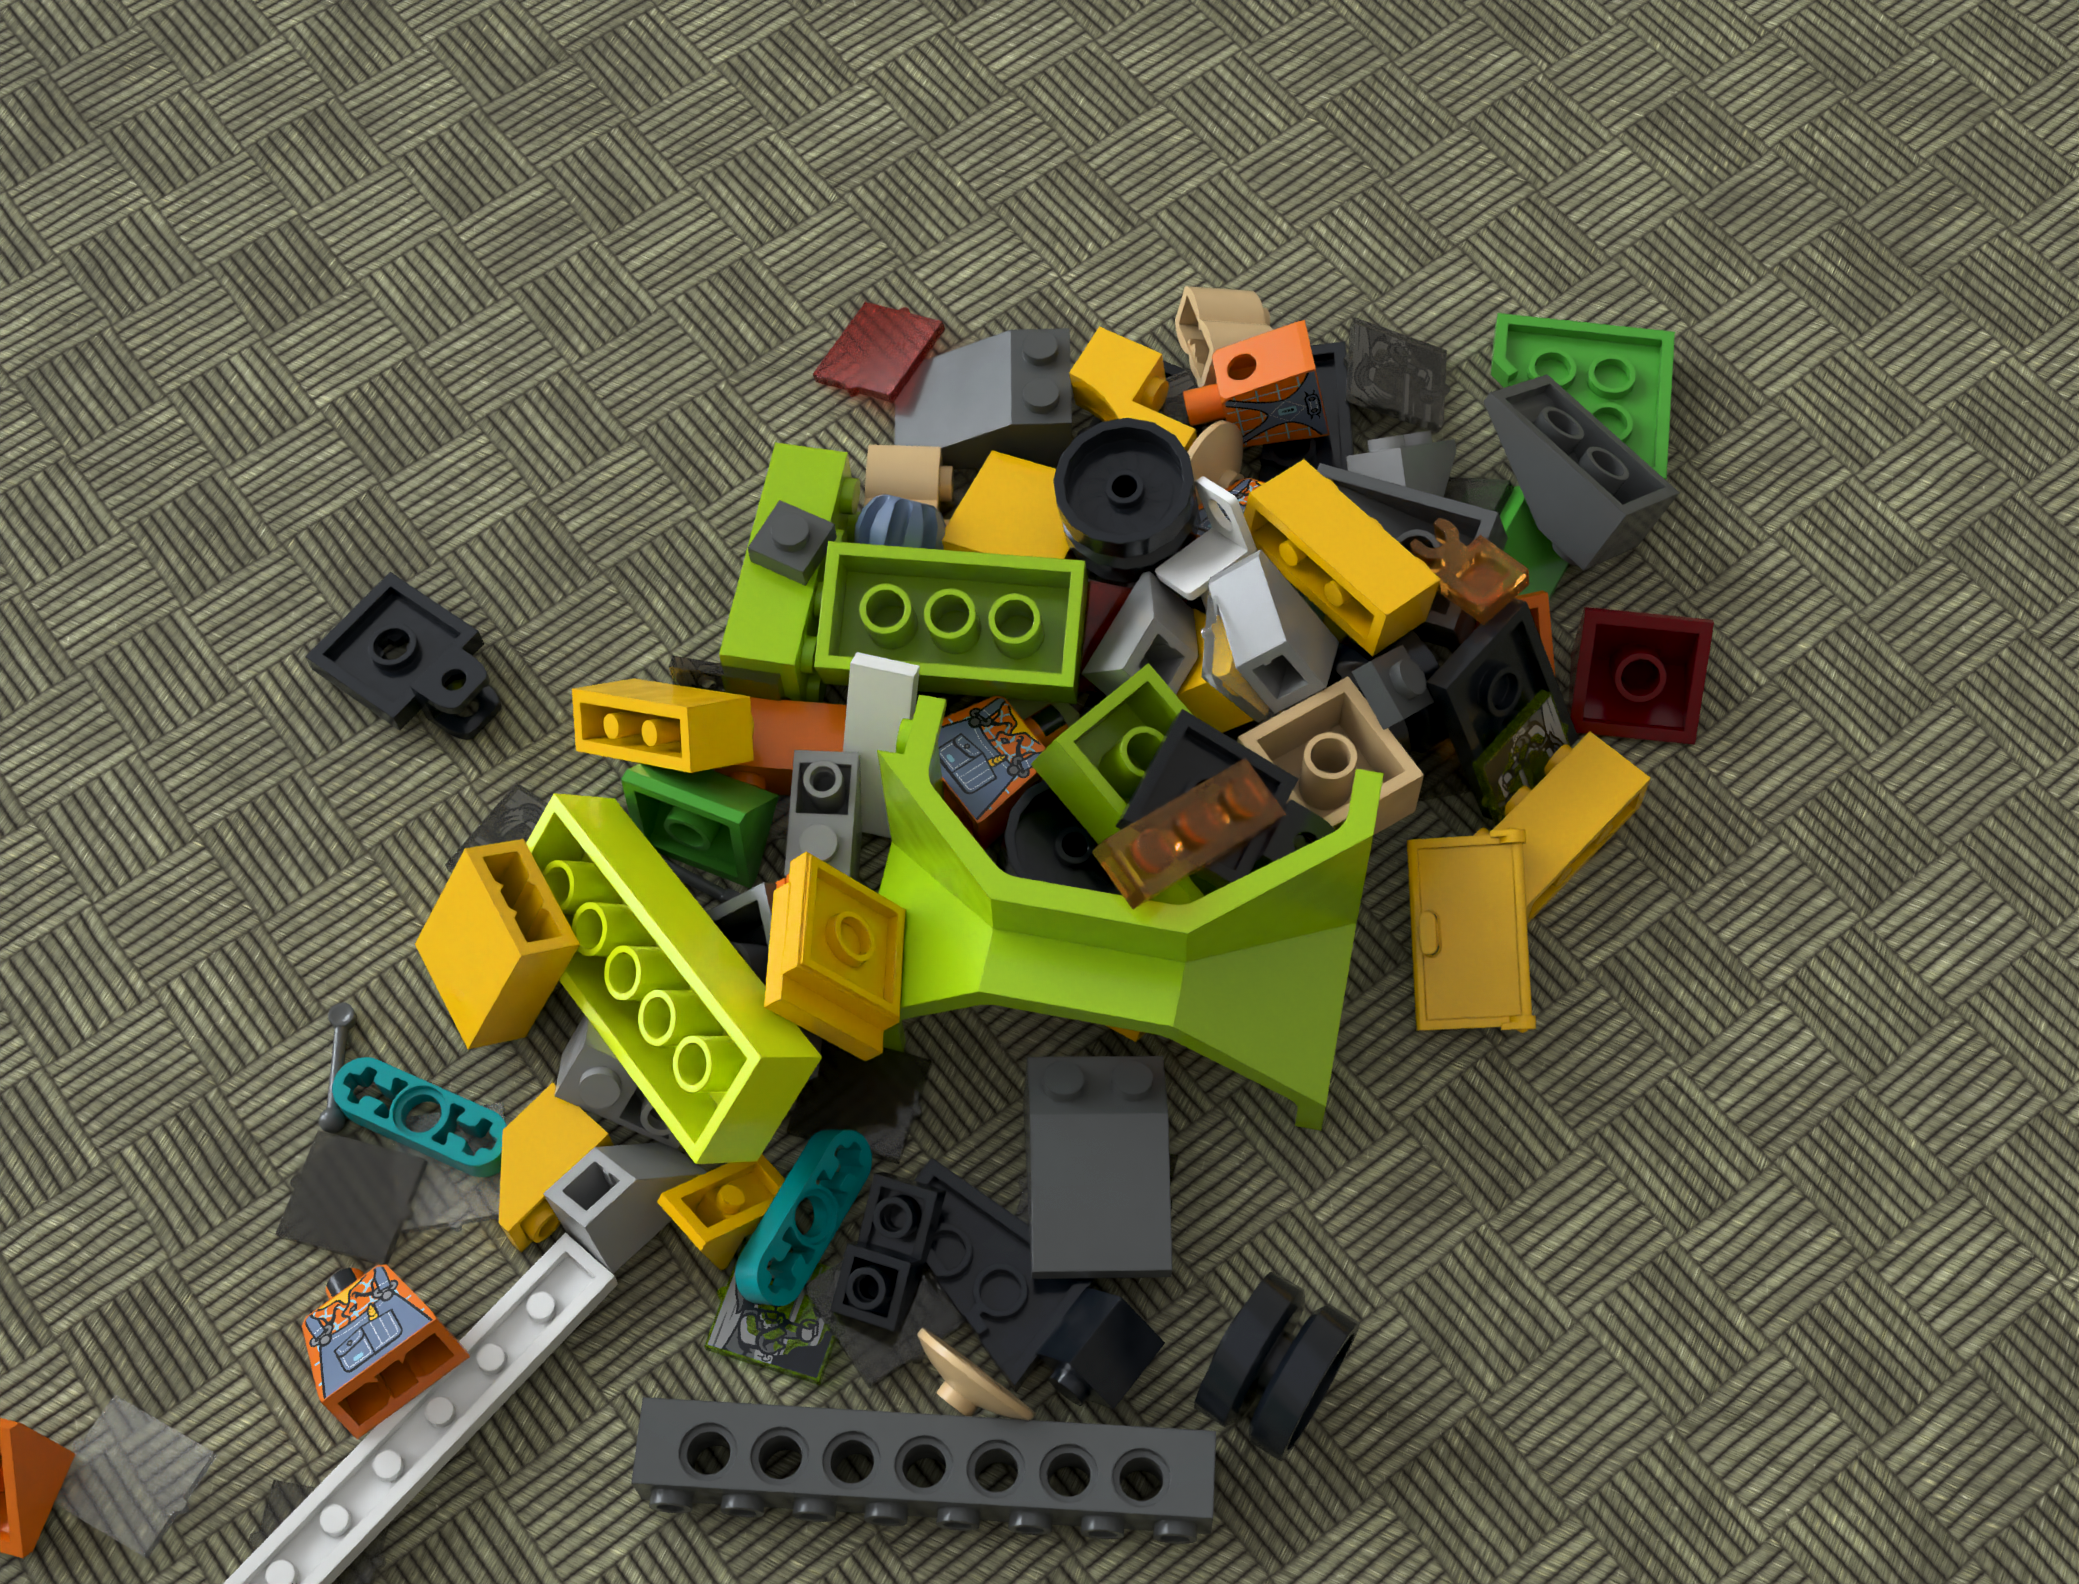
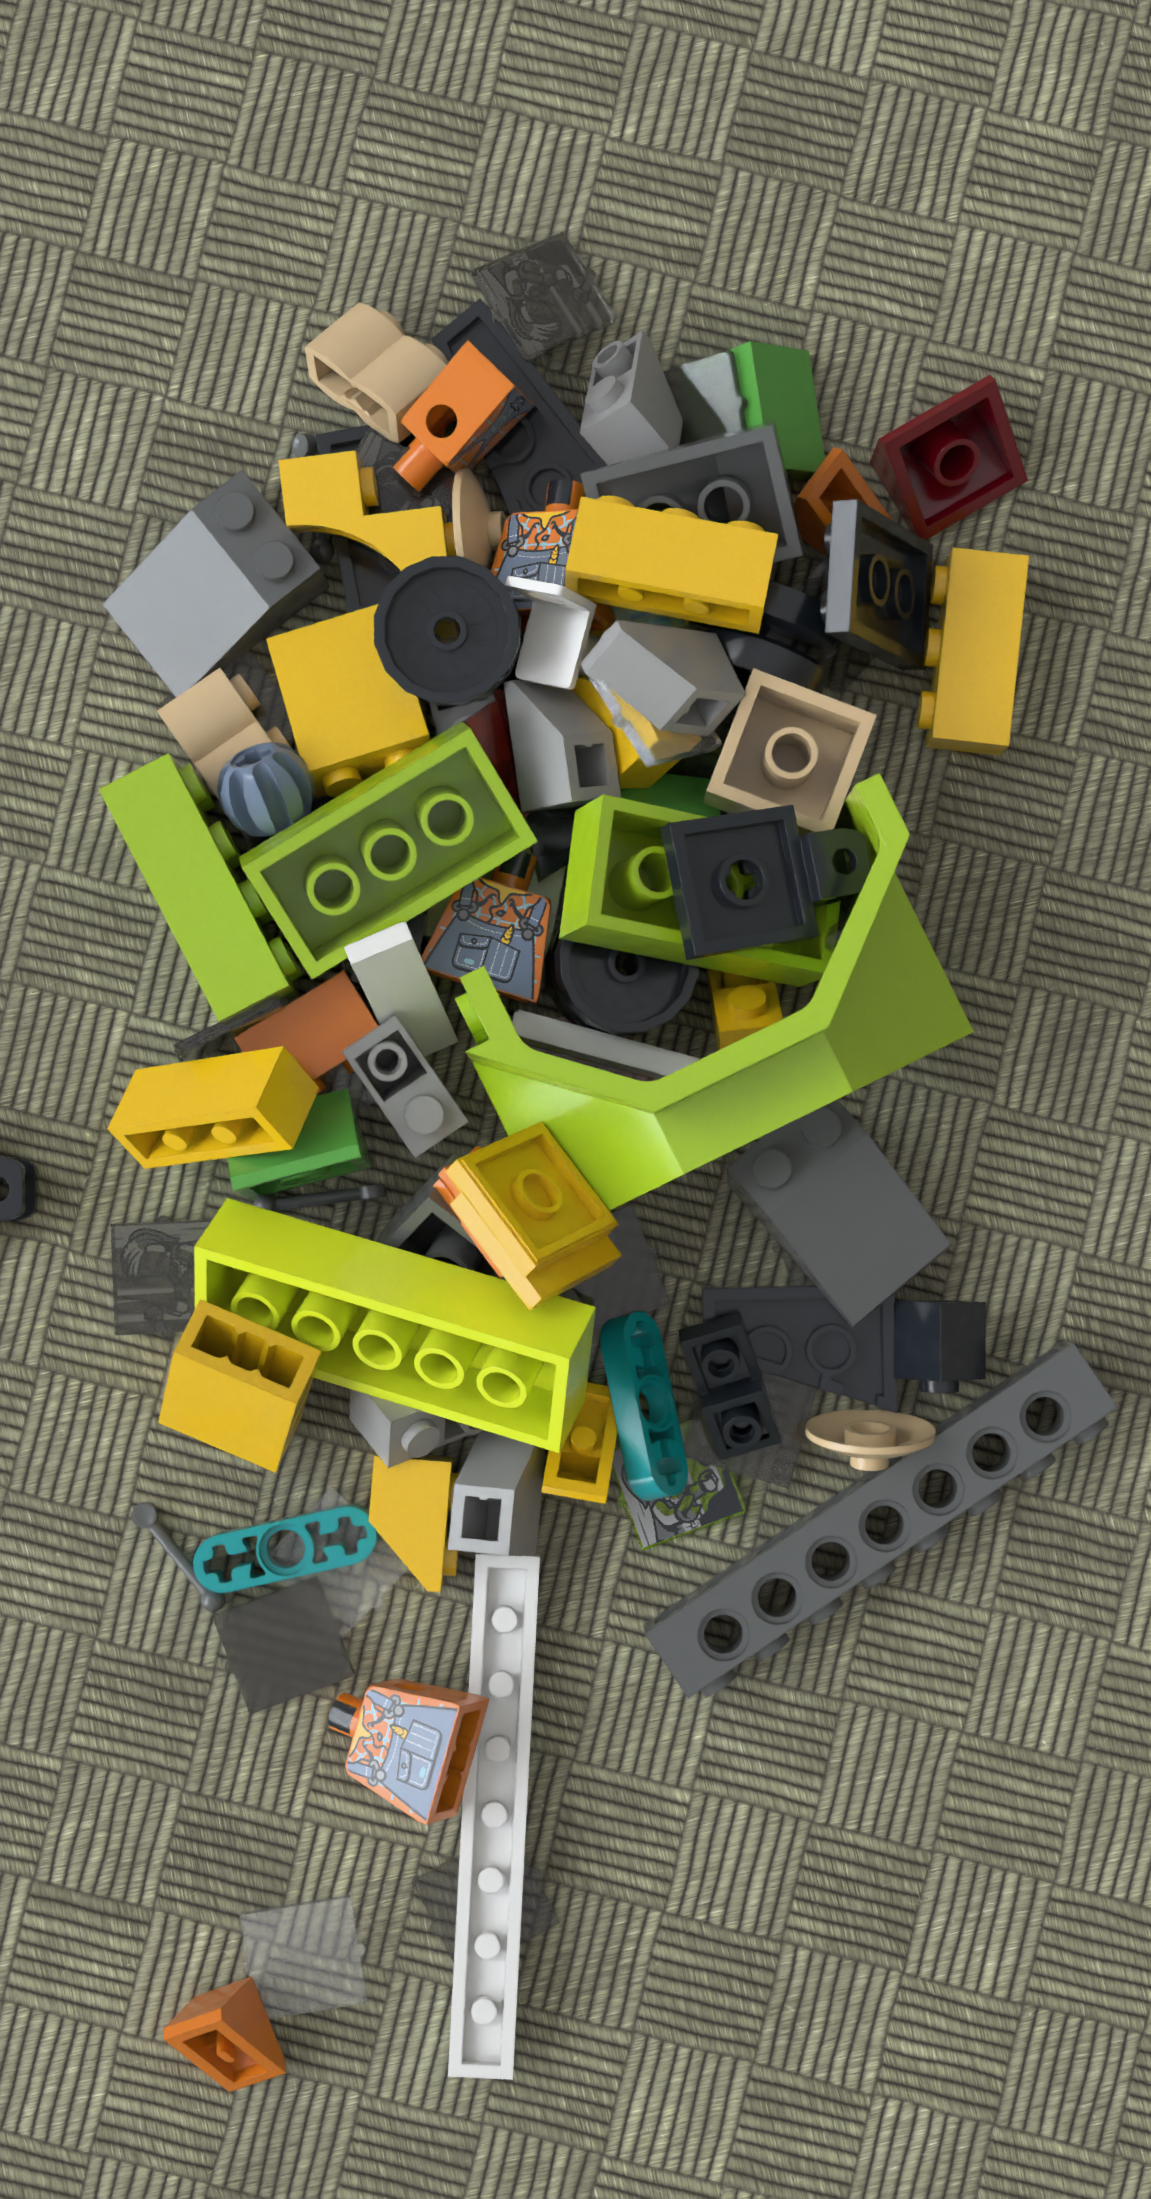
camera: 40 degrees left, 25 degrees up
(792, 542) = (198, 878): dark grey plate -> none
(879, 352) = (75, 598): clear red piece -> none
(1188, 833) = (763, 936): clear orange plate -> none
(1267, 1360) = (1084, 1262): black wheel -> none
(1393, 686) = (799, 654): dark grey plate -> none
(1473, 576) = (799, 504): clear orange plate -> none
(1480, 930) = (993, 811): yellow door -> none
(1520, 753) = (913, 610): piece -> none
(1575, 473) = (778, 302): dark grey slope -> none
(1608, 369) = (722, 188): bright green plate -> none

